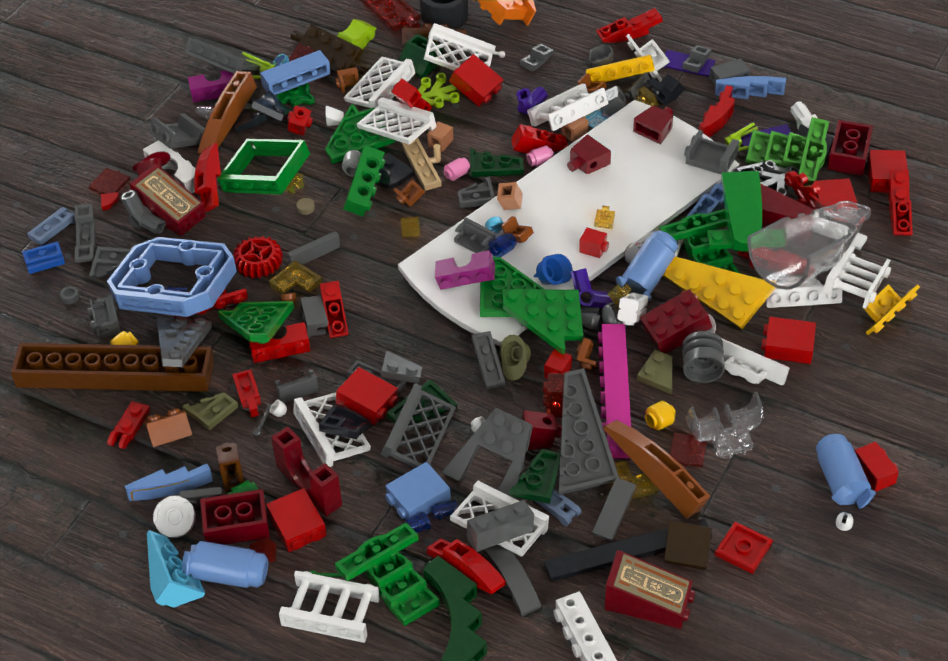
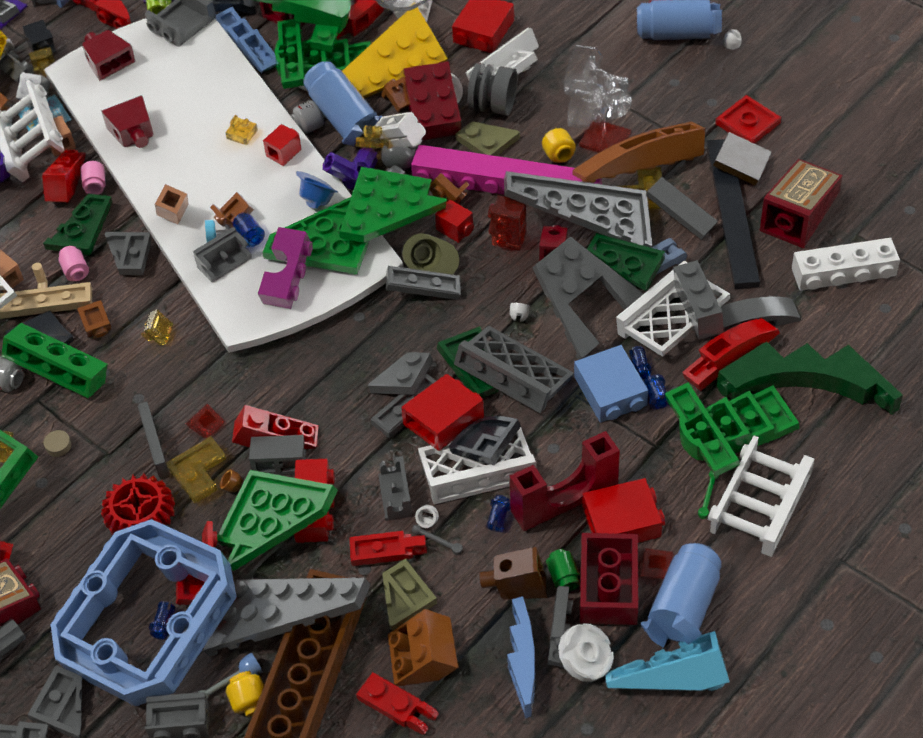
camera: 75 degrees left, 5 degrees up
(145, 340) = (248, 663): none -> medium blue hinge
(338, 272) = (205, 421): none -> clear red slope

